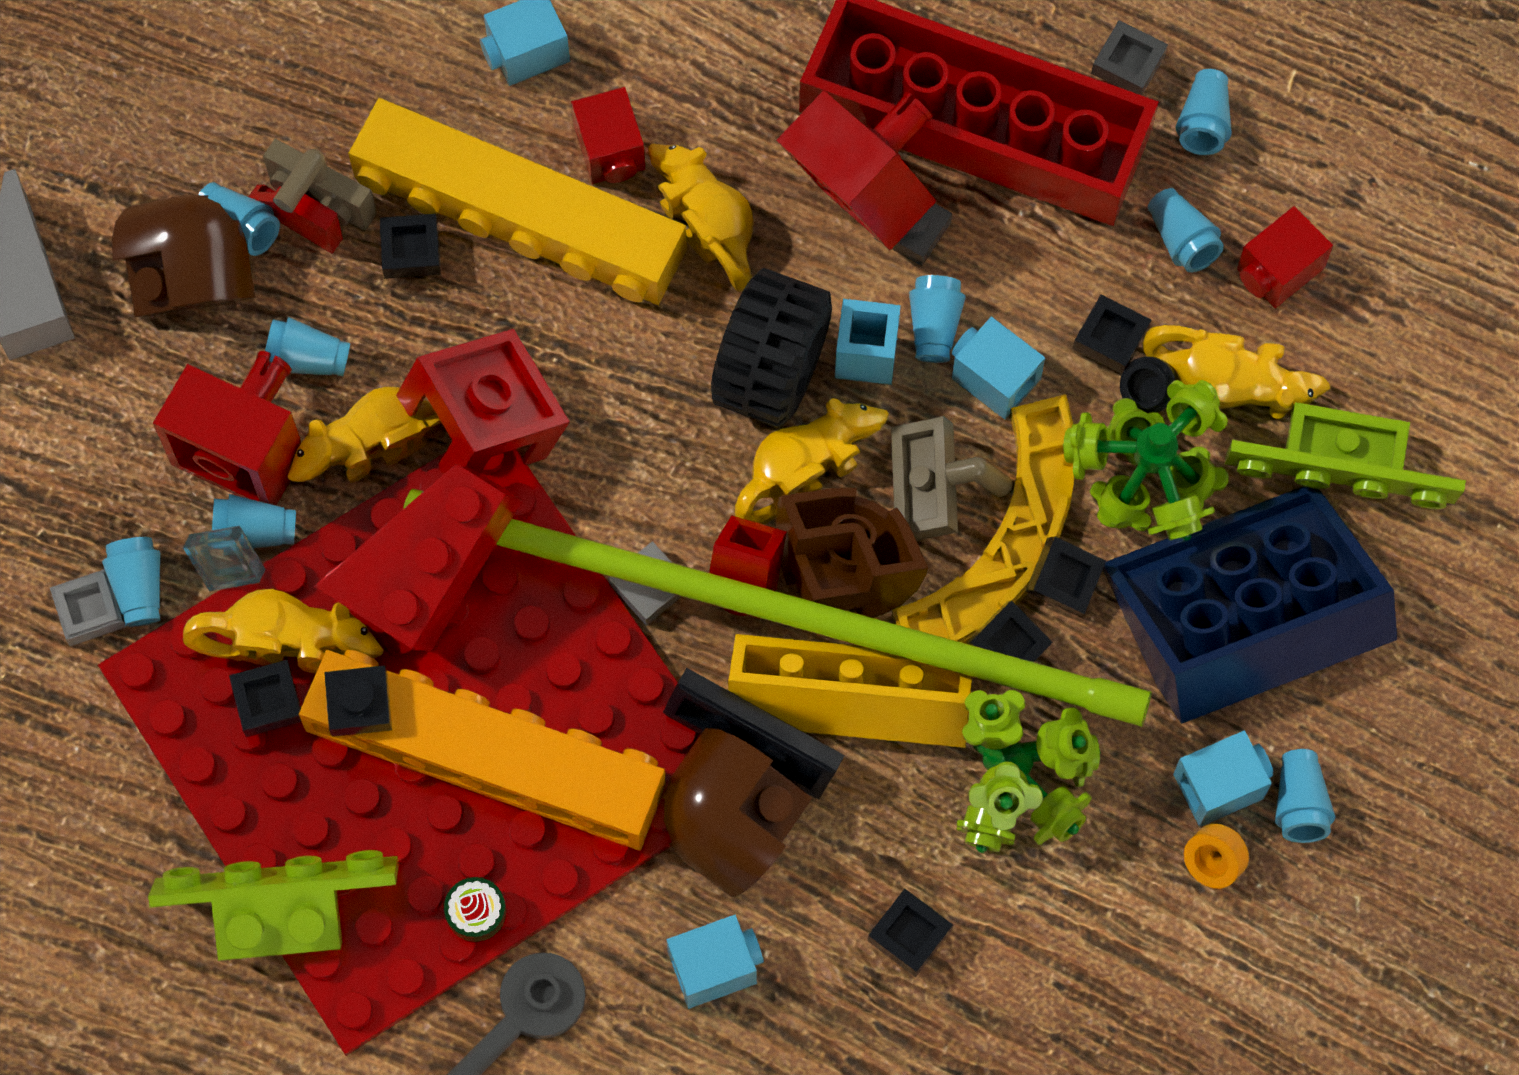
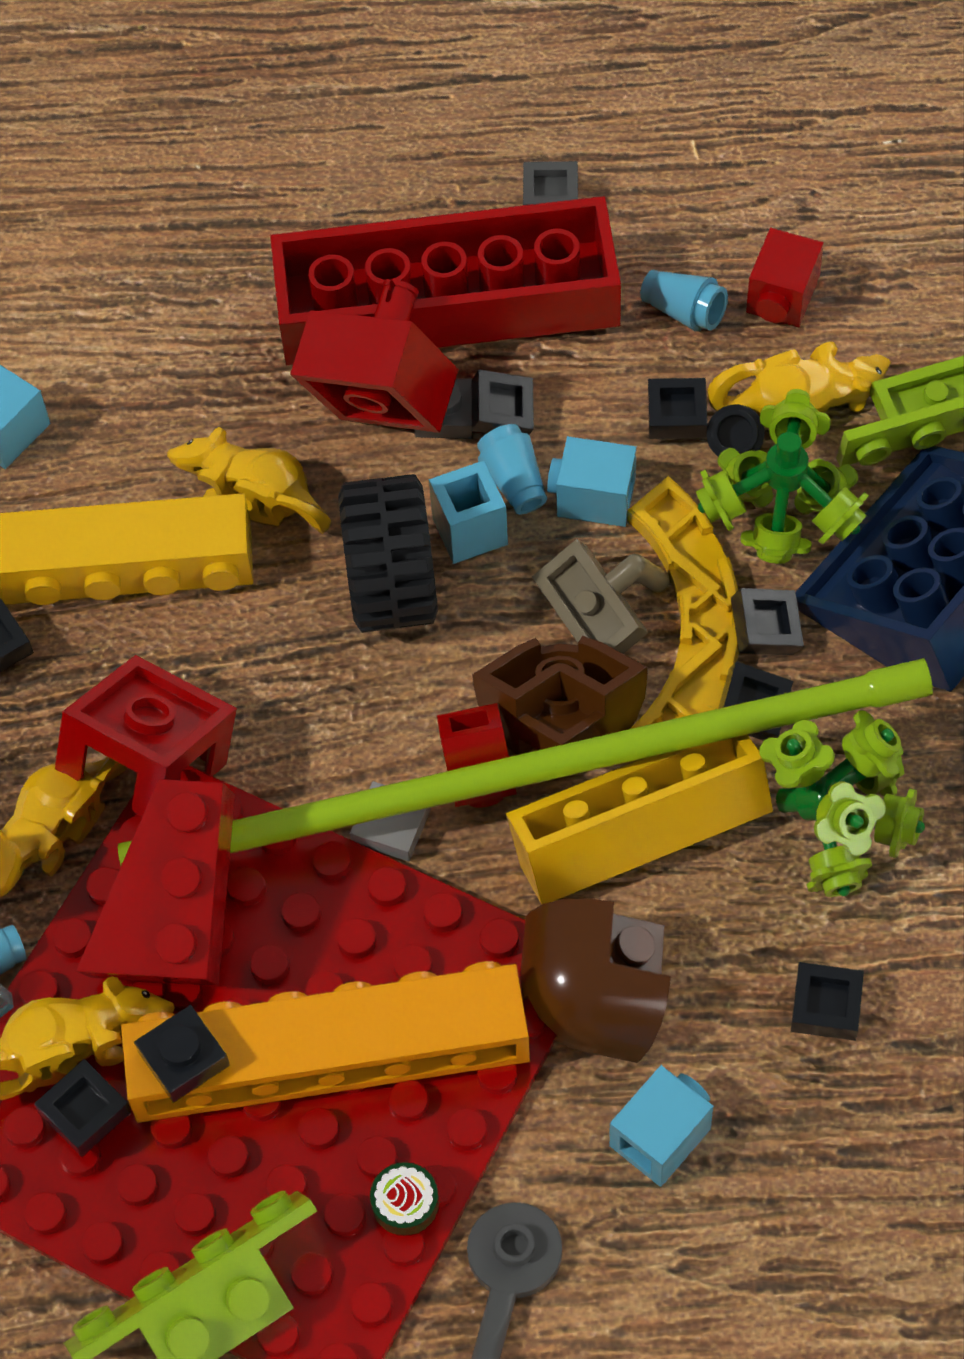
camera: 25 degrees left, 10 degrees down
(608, 136) = (125, 459): red brick -> none
(794, 754) = (513, 890): black tile -> none
(798, 455) = (466, 637): yellow animal -> none
(961, 250) = (501, 401): none -> black plate
(1206, 114) = (644, 203): medium azure cone -> none

